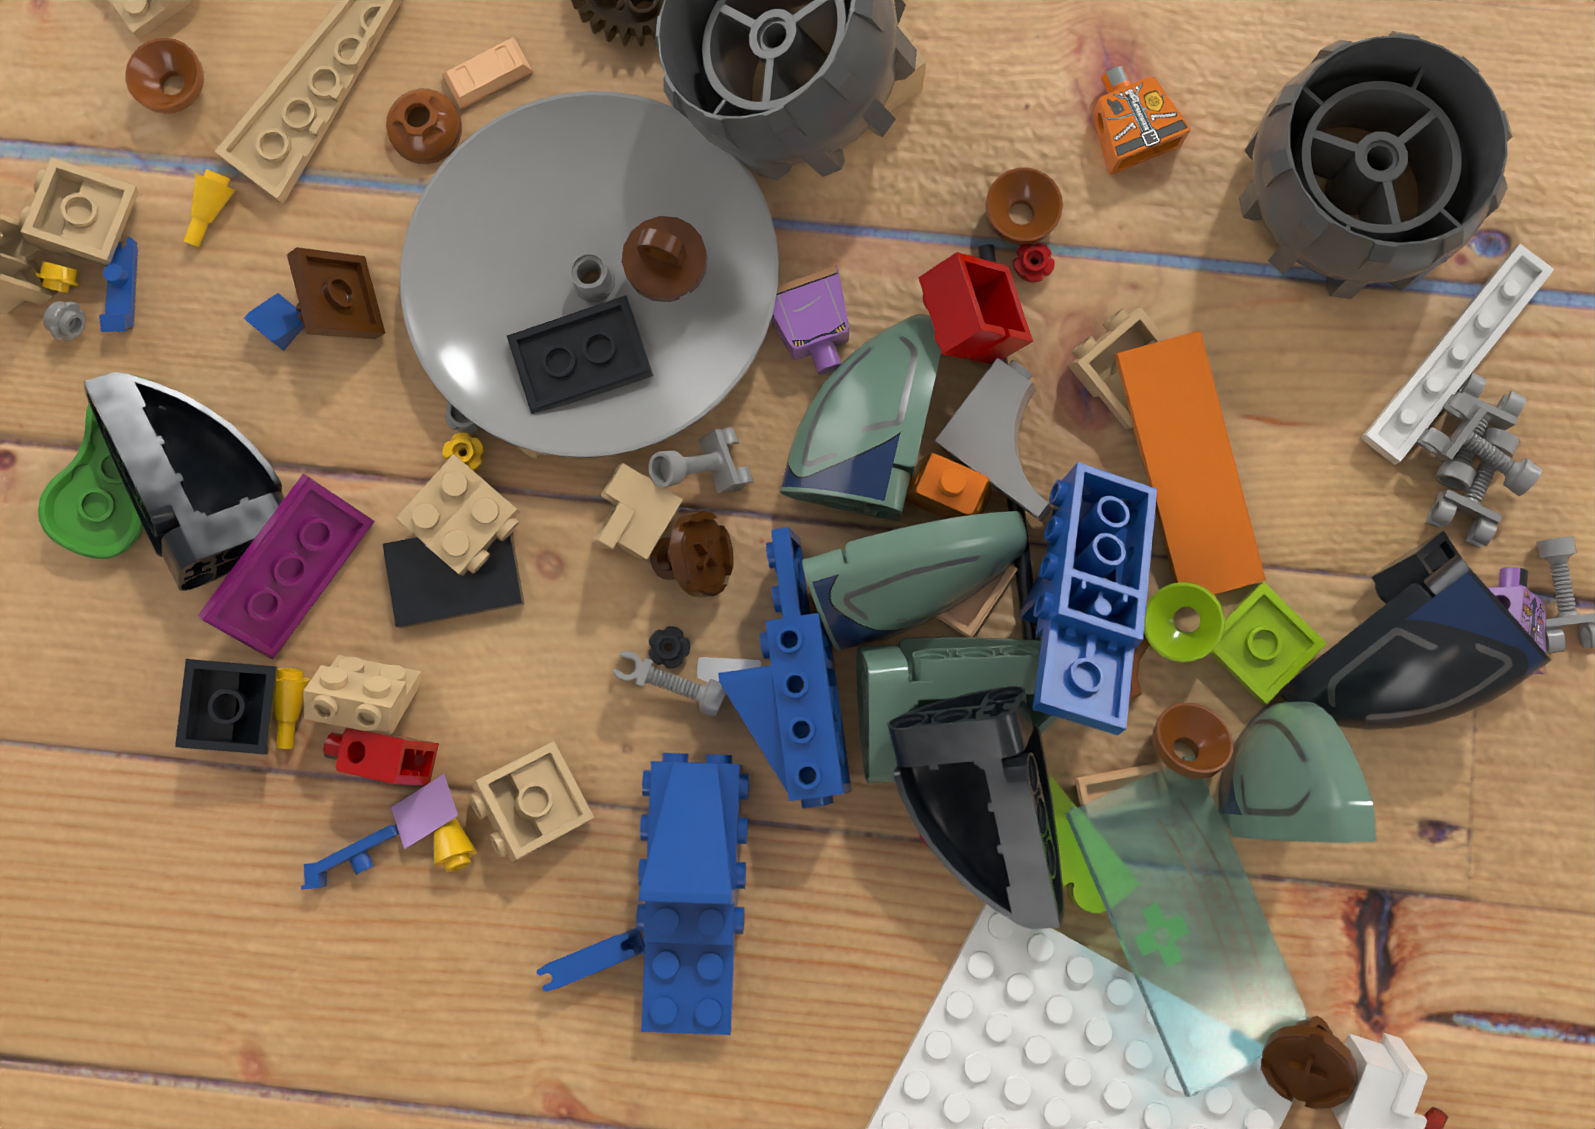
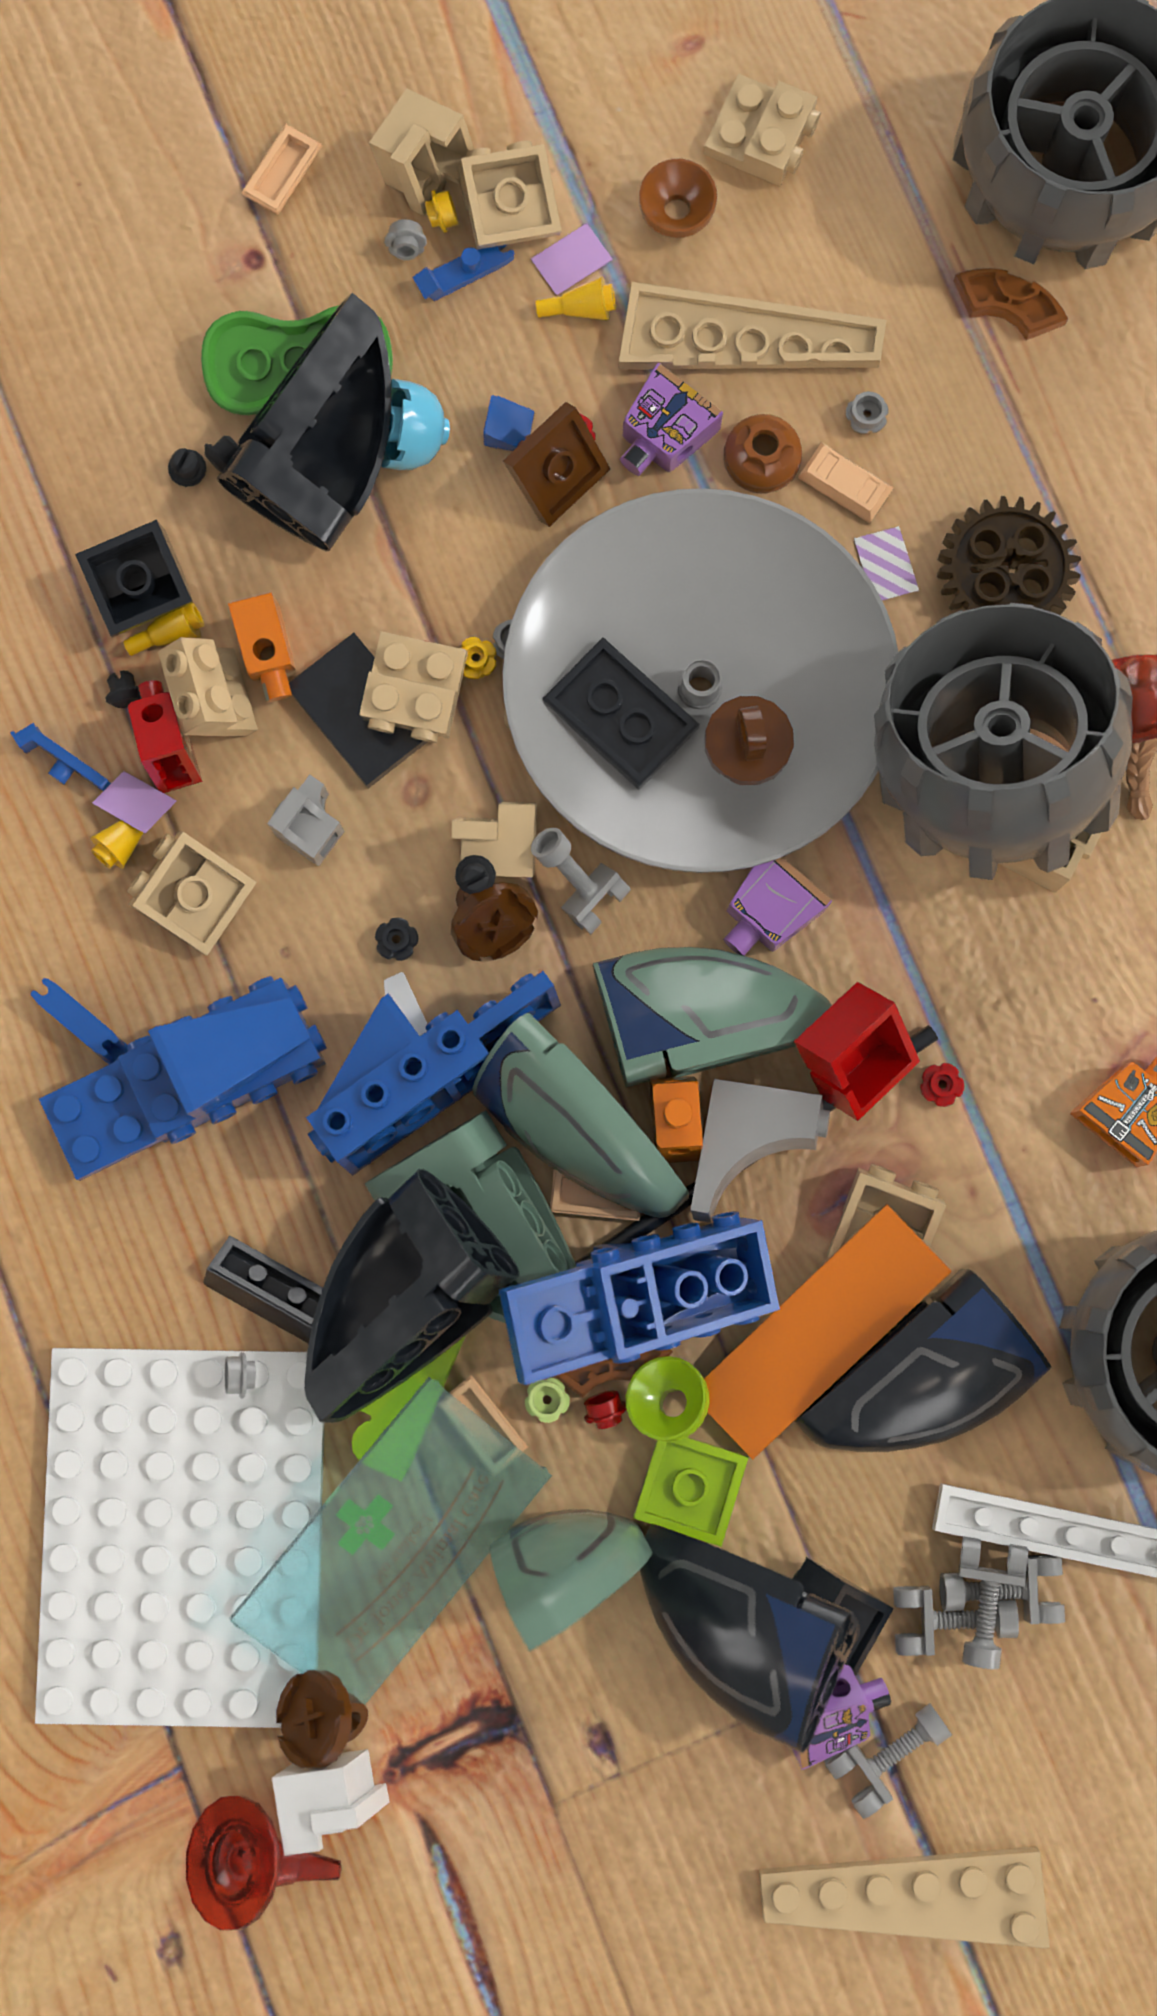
camera: 55 degrees right, 0 degrees up
(154, 612) = (186, 467): none -> black piece
(159, 575) = (221, 452): none -> black piece
(165, 194) = (571, 259): none -> lavender sticker
(234, 395) = (415, 426): none -> medium azure cylinder
(286, 567) = (290, 557): magenta tile -> none
(320, 770) = (121, 690): none -> black piece
(333, 621) = (258, 627): none -> orange torso
(353, 187) = (667, 423): none -> medium lavender torso
(436, 13) = (869, 402): none -> light grey plate
(526, 671) = (304, 823): none -> light grey brick
(572, 74) = (887, 563): none -> sticker
(654, 545) = (475, 874): none -> black piece
(708, 695) = (360, 930): light grey bar -> none
(911, 915) = (264, 1287): none -> black slope
(976, 978) = (239, 1375): none -> light grey plate
(1029, 188) = (1006, 1032): dark orange piece -> none
(1138, 731) = (547, 1412): none -> yellowish green plate
(1161, 680) = (605, 1409): none -> red plate
(1199, 730) = (577, 1468): dark orange piece -> none
(1271, 395) = (930, 1375): none -> black panel

